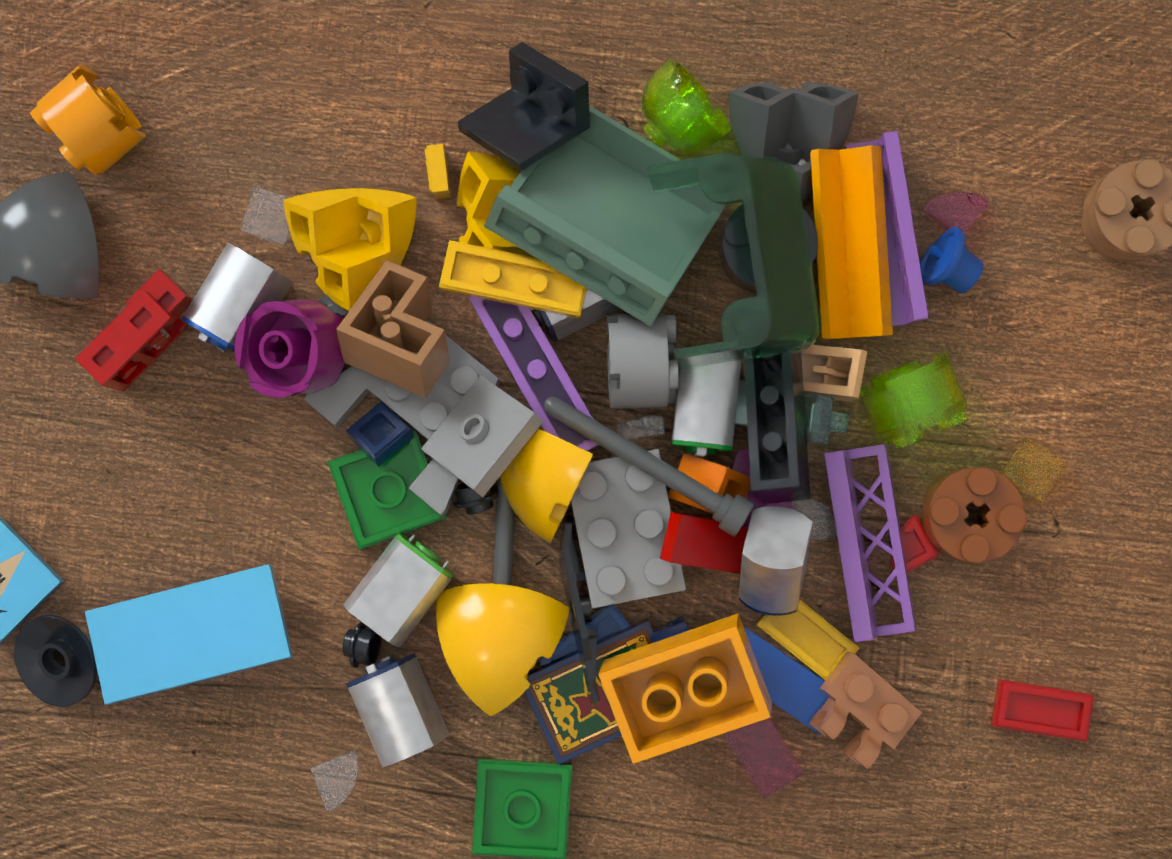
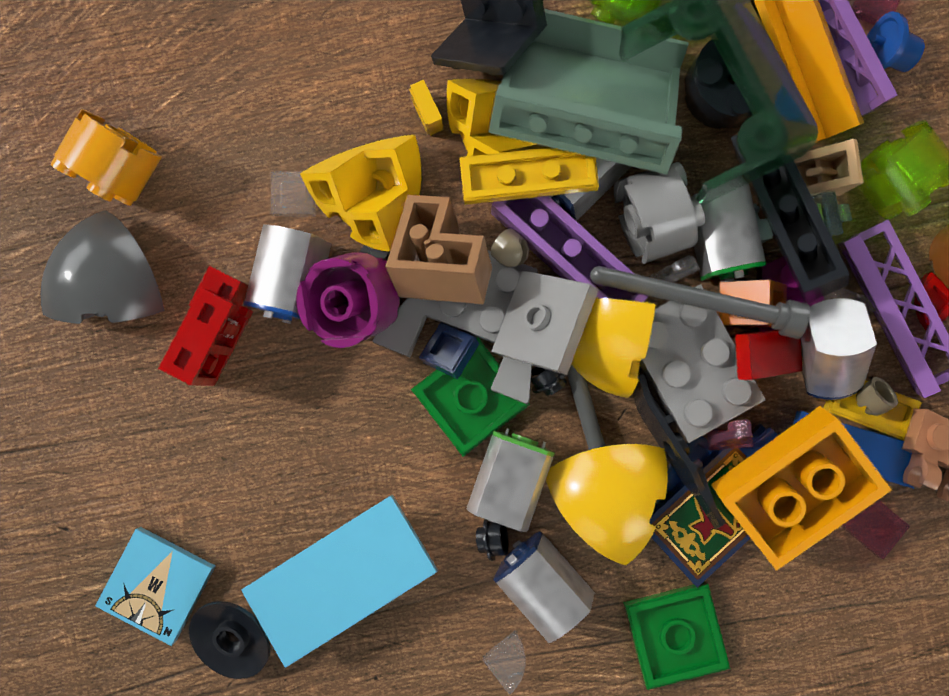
camera: 25 degrees left, 0 degrees up
(475, 348) = (510, 248): none -> dark tan hinge
(644, 617) = (737, 436): none -> clear pink tile
(816, 620) = (877, 397): none -> dark tan hinge

